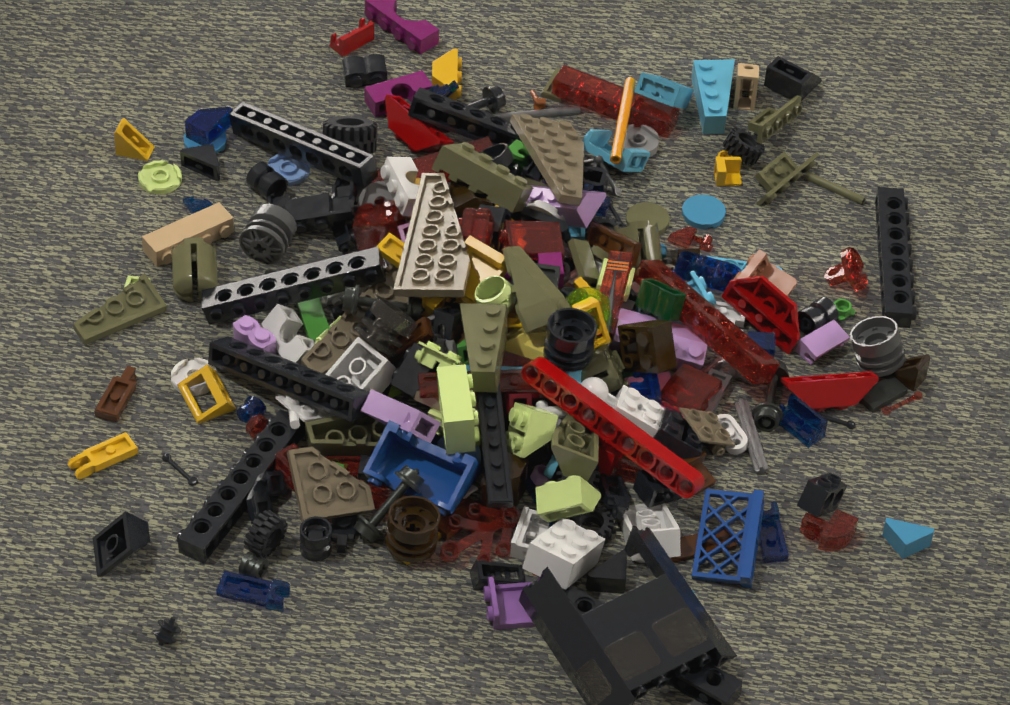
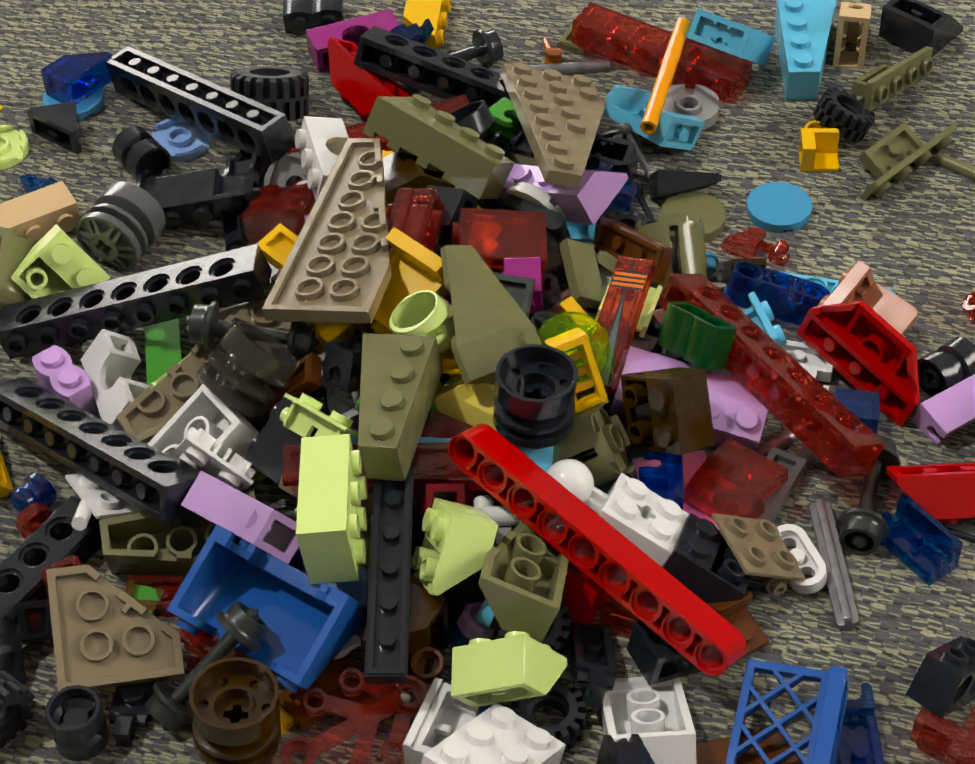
camera: 10 degrees right, 0 degrees up
(235, 262) = (57, 266): none -> yellowish green slope
(368, 380) = (196, 455): none -> white hinge
(524, 501) = (419, 664): none -> reddish brown hinge
(629, 196) = (671, 182): none -> black slope

